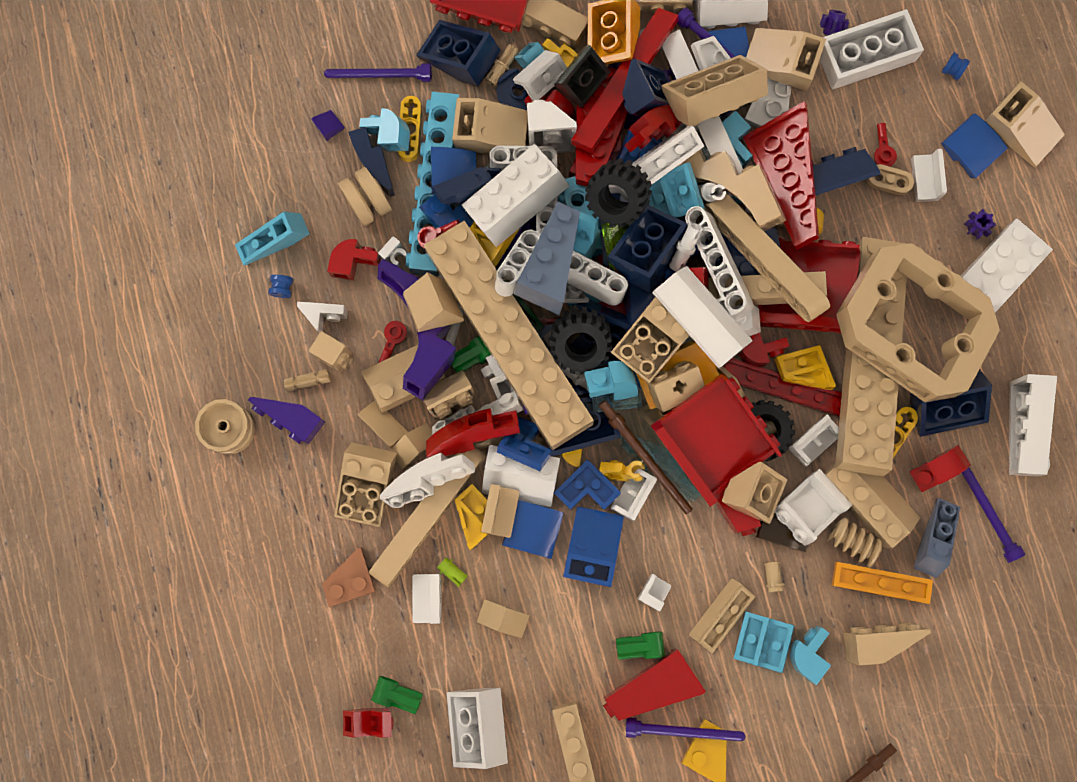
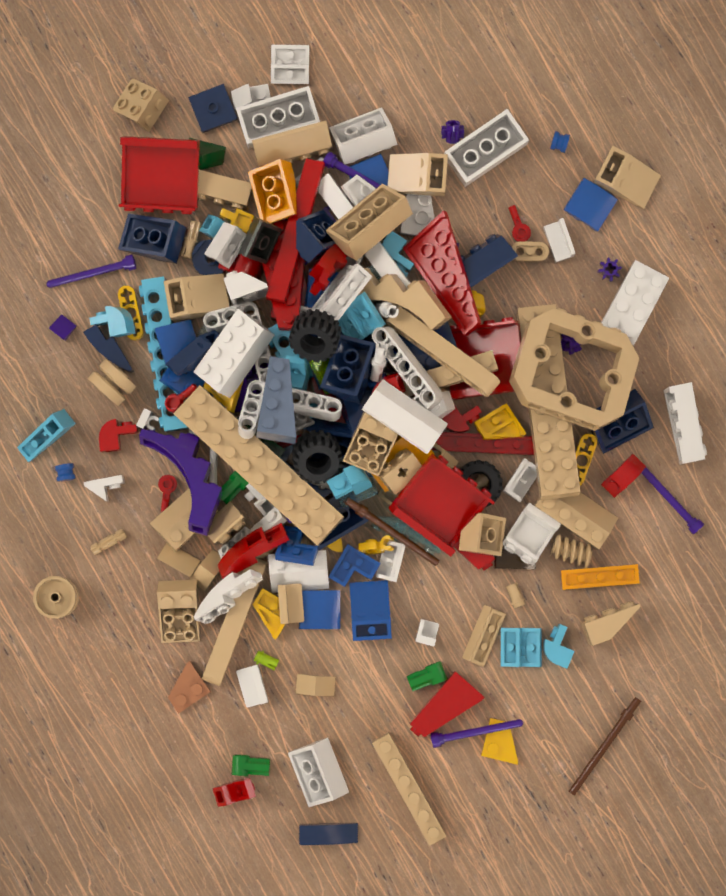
camera: 20 degrees left, 5 degrees up
(294, 417) = (110, 575): dark purple slope -> none
(331, 352) = (123, 515): tan brick -> none
(432, 303) = (192, 456): tan slope -> none
(915, 296) = (569, 344): none -> dark purple gear
(938, 539) = (634, 530): sand blue slope -> none

